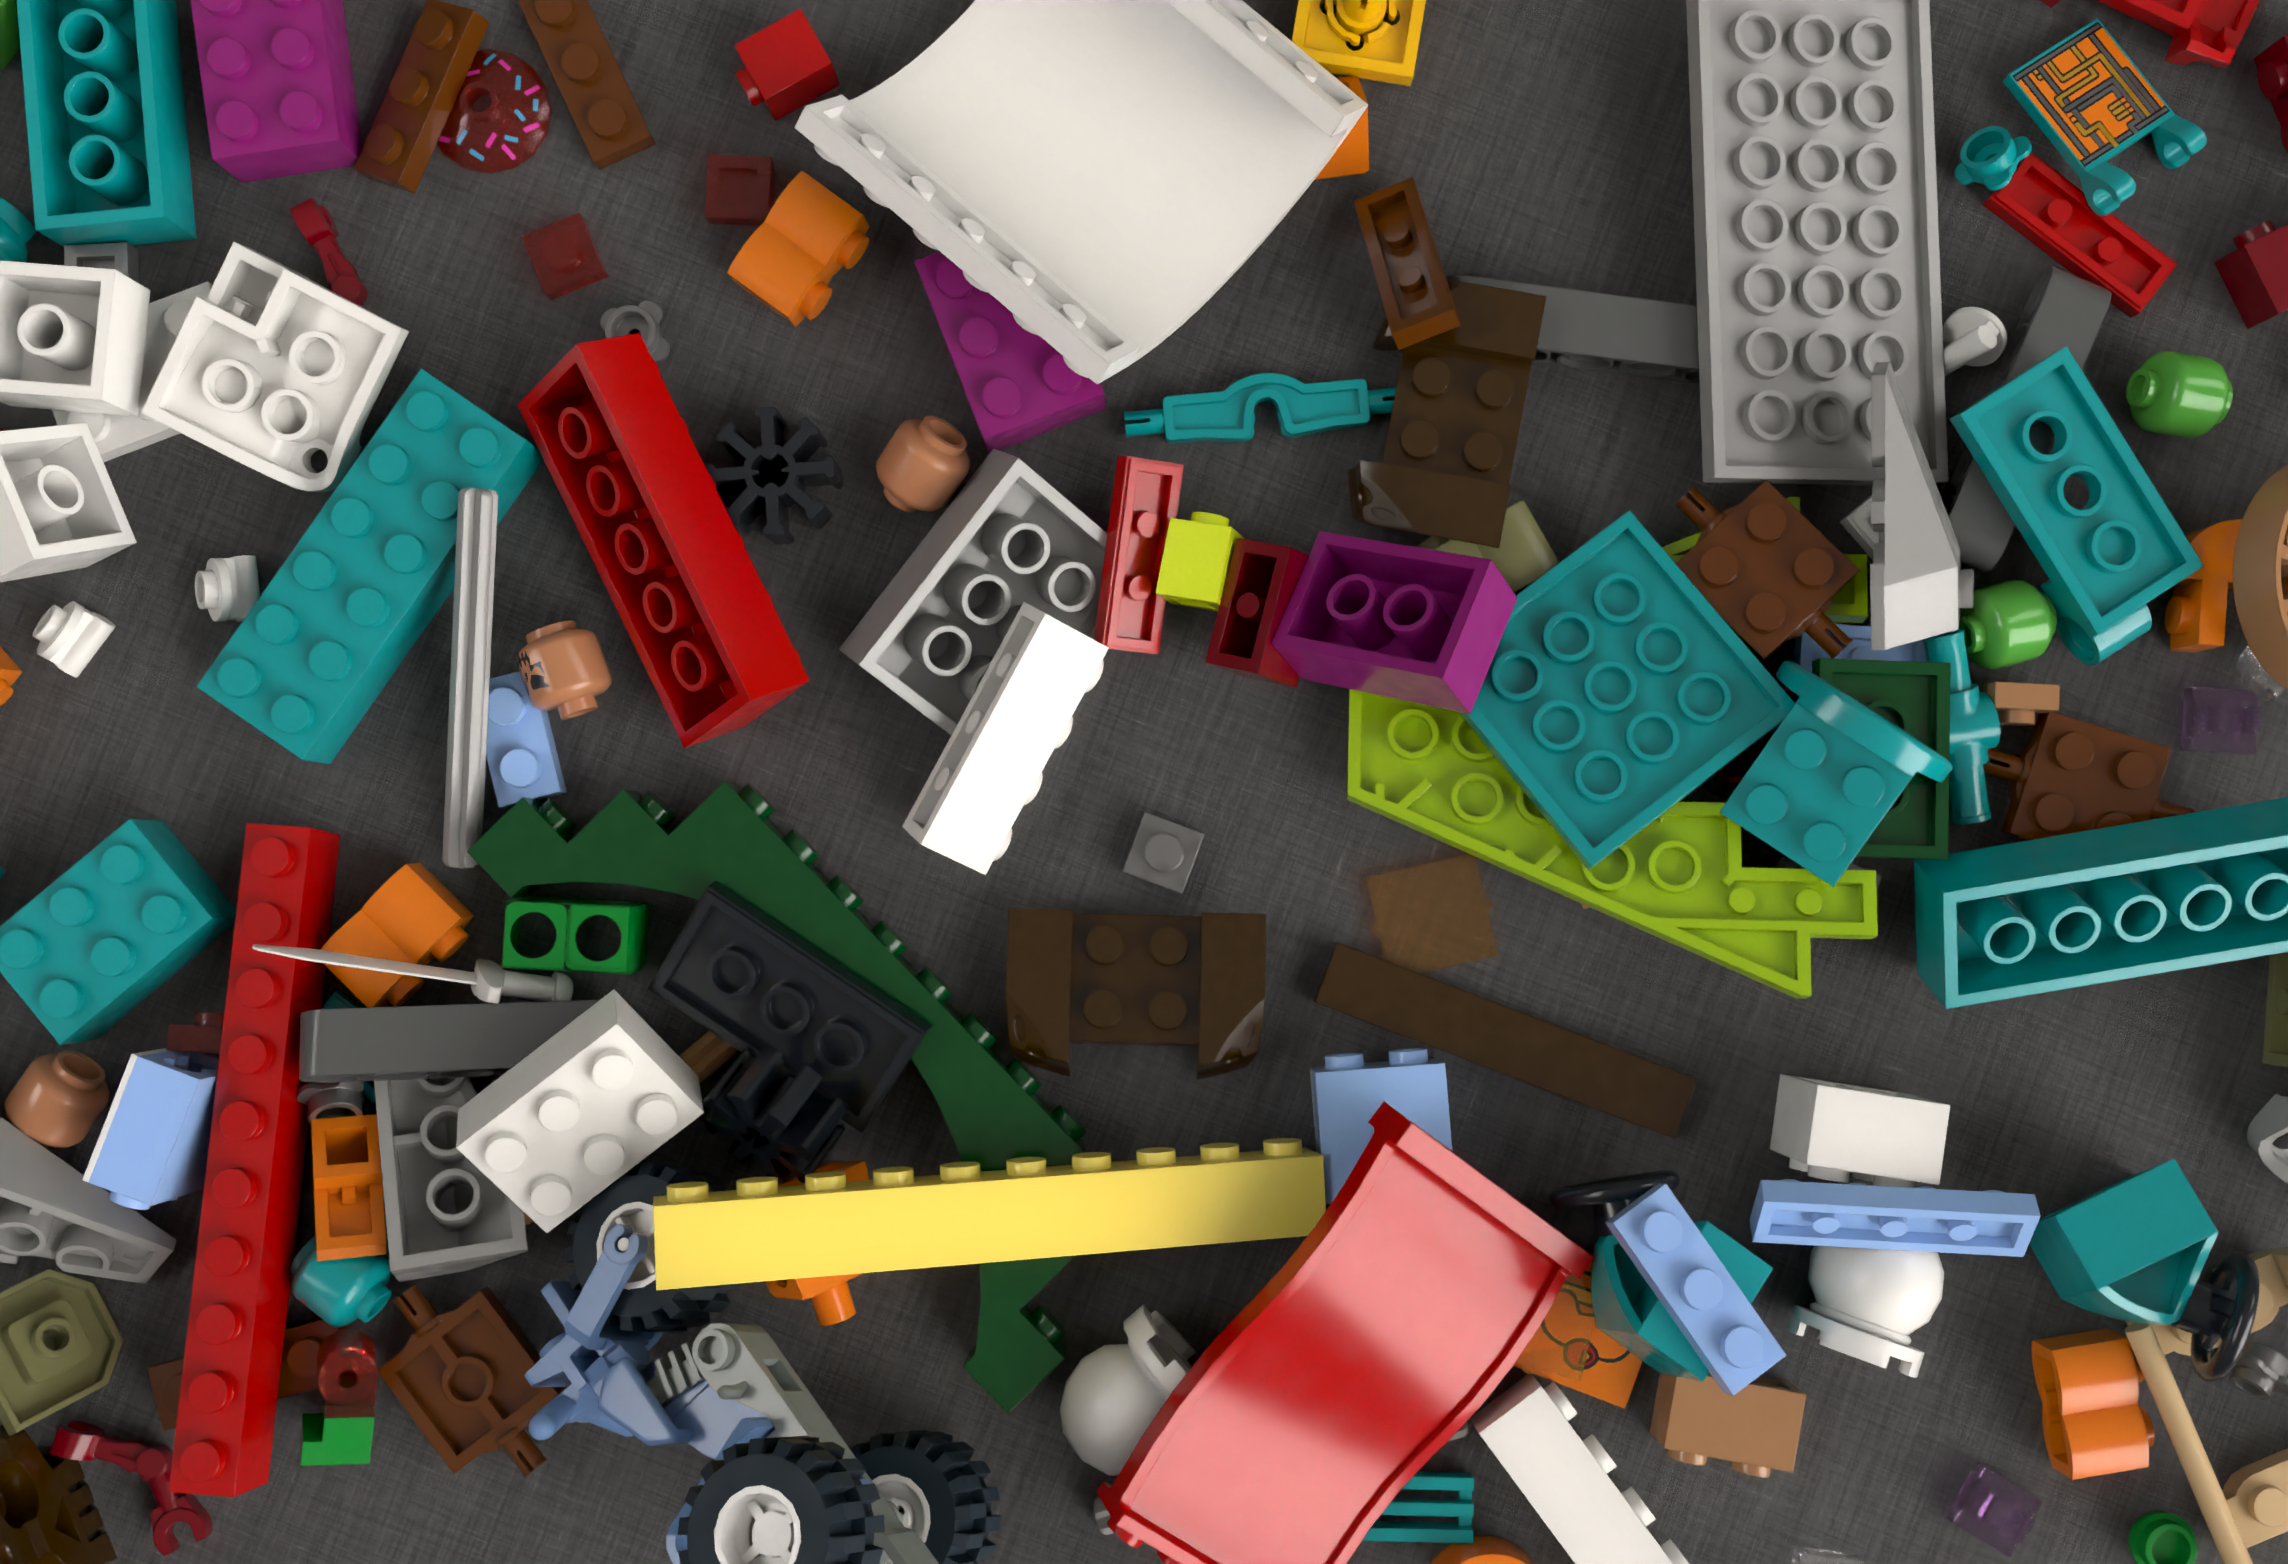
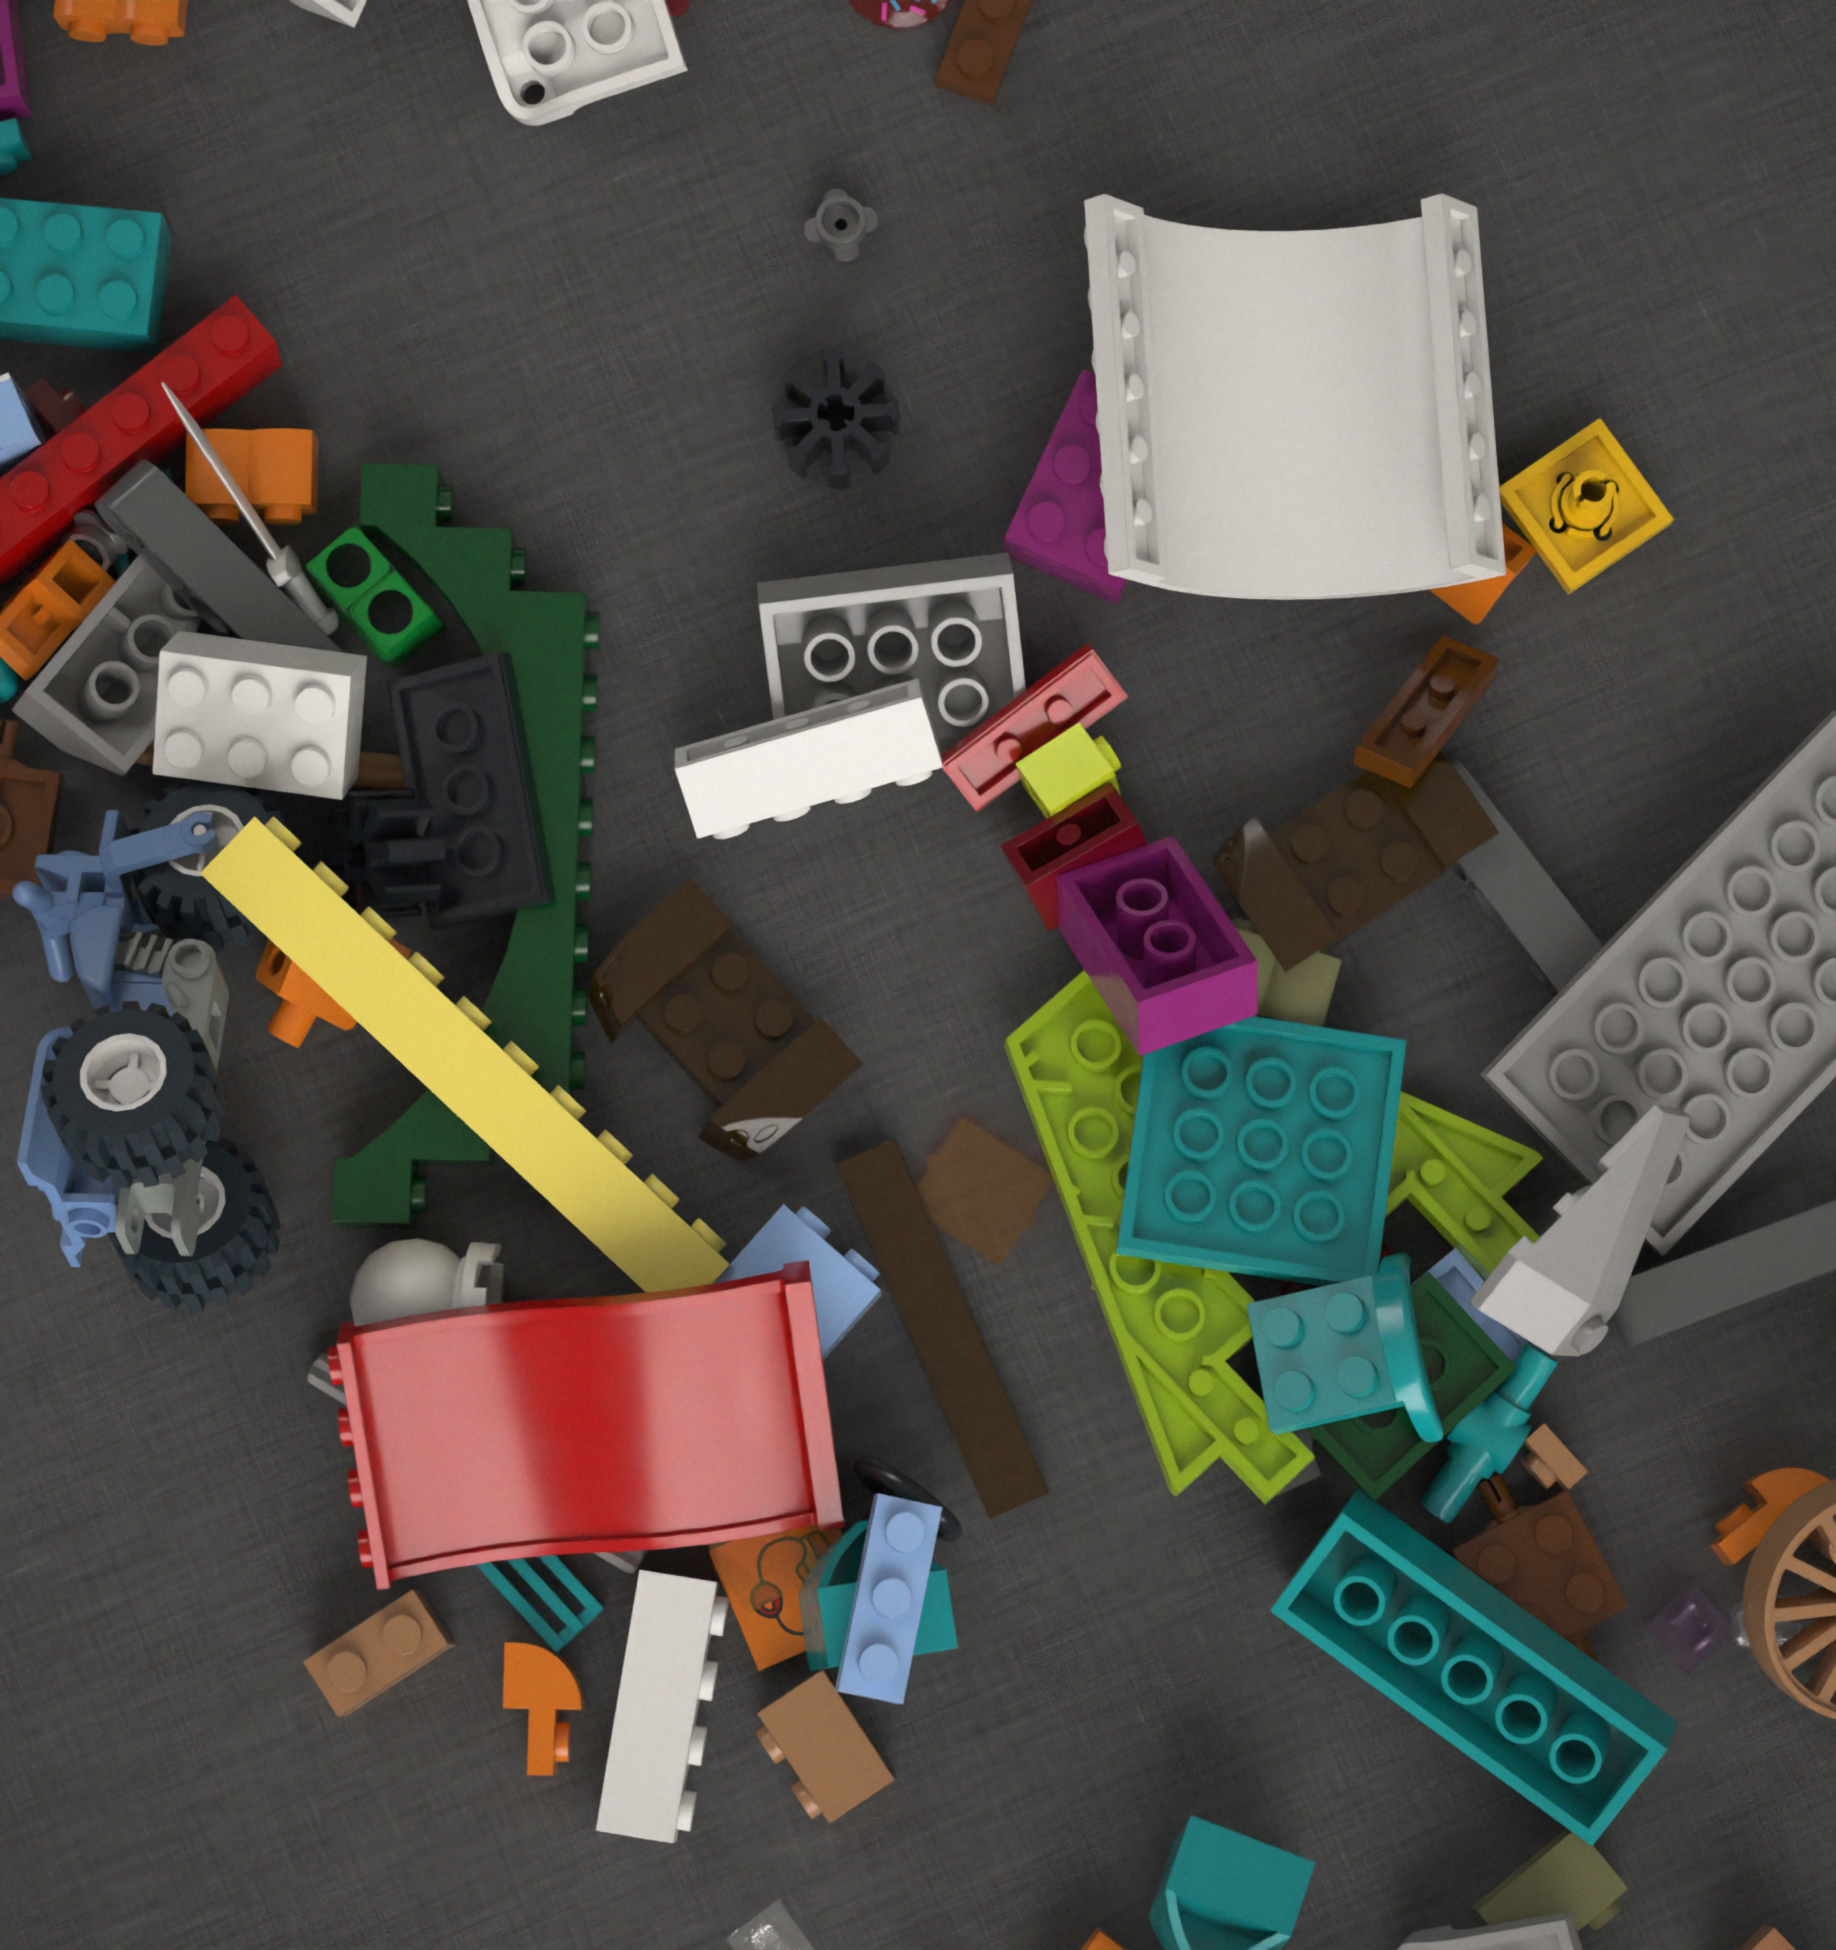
camera: 50 degrees right, 5 degrees down
(71, 636) = (243, 45): white plate -> none
(228, 587) = (383, 122): white plate -> none
(367, 572) = (495, 207): teal brick -> none
(469, 674) = (486, 346): light grey axle -> none
(520, 745) = (473, 421): light blue plate -> none
(563, 669) = (554, 406): nougat head -> none
(564, 256) = (848, 122): clear red plate -> none
(661, 538) = (712, 386): red brick -> none
(739, 189) = (1016, 198): clear red plate -> none
(785, 66) = (1135, 144): red brick -> none
(800, 250) = (1015, 282): orange brick -> none
(923, 464) = (947, 514): nougat head -> none
(1163, 852) = (837, 954): flat silver plate -> none
(1231, 418) = (1203, 696): teal piece -> none
(1766, 570) = (1457, 1179): reddish brown plate -> none
(1860, 1130) = (1121, 1634): white brick -> none
(1871, 1302) = (1018, 1756): white tile -> none
(1894, 1217) = (1076, 1700): light blue plate -> none
(1972, 338) = (1787, 1174): white plate -> none
(2007, 624) = (1598, 1397): bright green head -> none
(2099, 558) = (1717, 1412): teal hinge -> none

